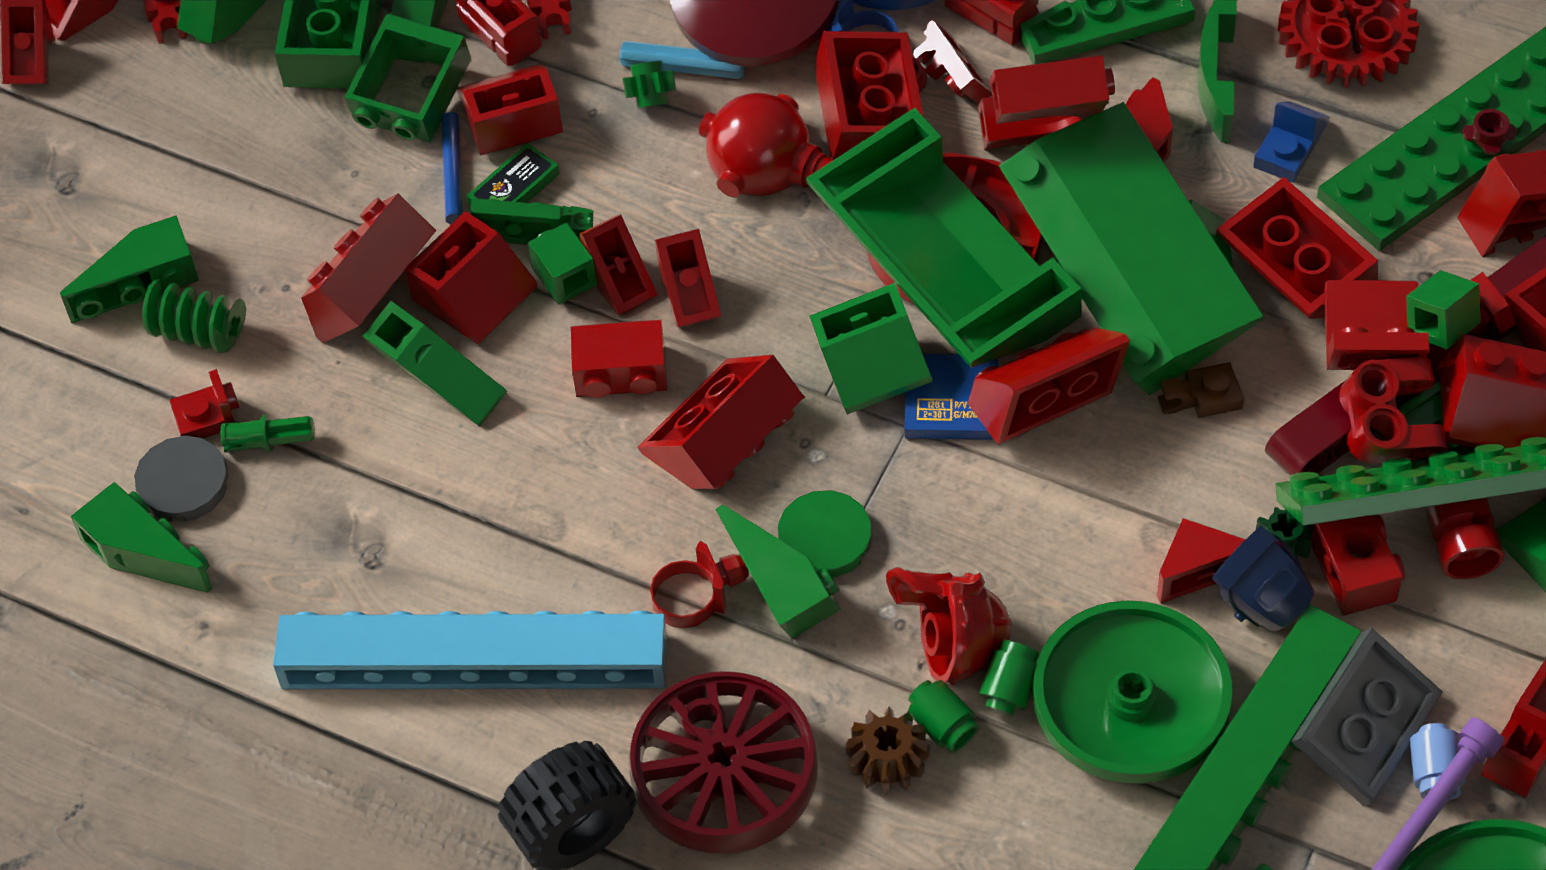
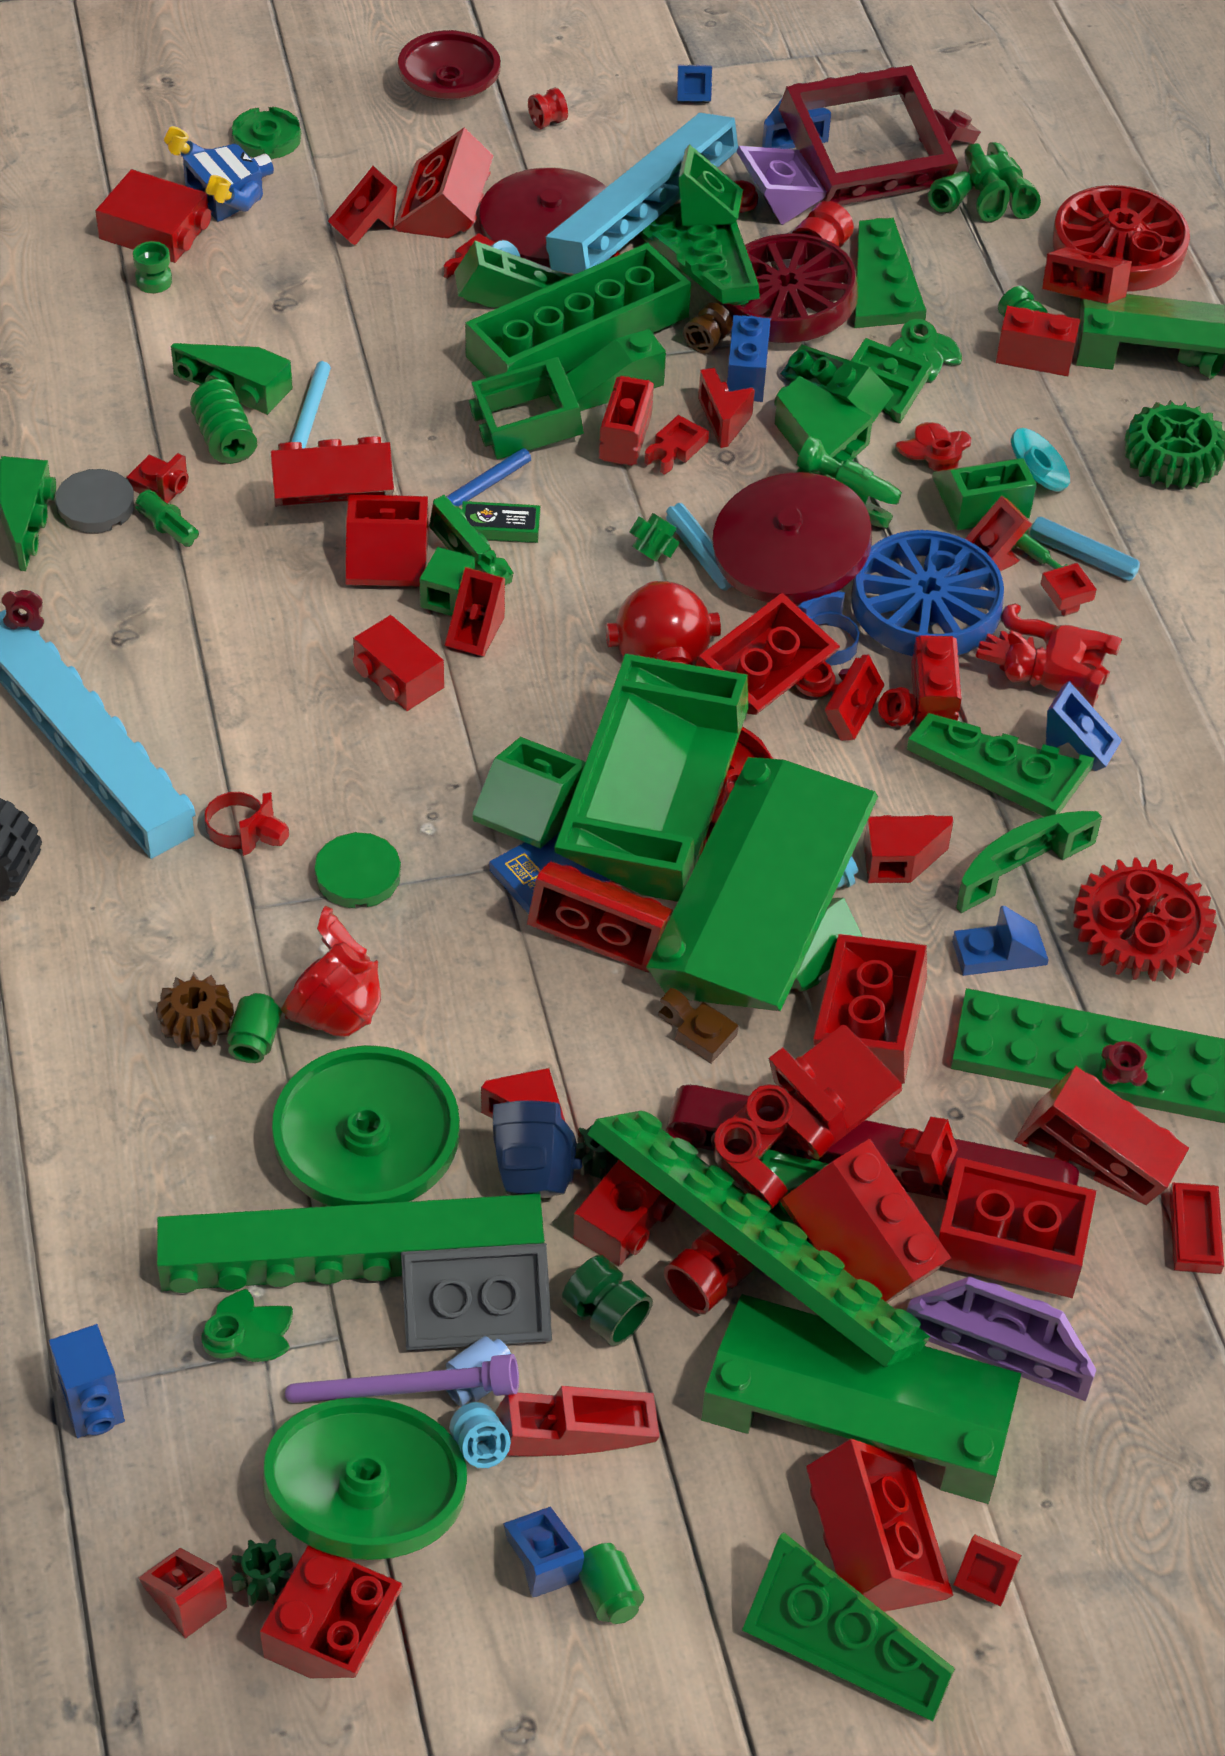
camera: 45 degrees right, 5 degrees down
(239, 251) = (311, 403): none -> medium azure bar
(308, 605) = (25, 600): none -> dark red plate
(434, 363) = (298, 562): green slope -> none
(511, 109) = (556, 476): red slope -> none
(687, 278) = (502, 649): red slope -> none
(706, 750) = (101, 920): dark red piece -> none
(723, 421) = (396, 754): red slope -> none
(786, 578) = (288, 859): green slope -> none
(979, 43) = (890, 704): none -> red plate
(1009, 678) = (314, 1042): green brick -> none
(1042, 99) = (832, 743): red arch -> none
(1444, 308) = (882, 1111): green brick -> none
(1445, 624) = (612, 1305): none -> dark green wheel
(1512, 796) = (475, 1424): none -> medium azure wheel

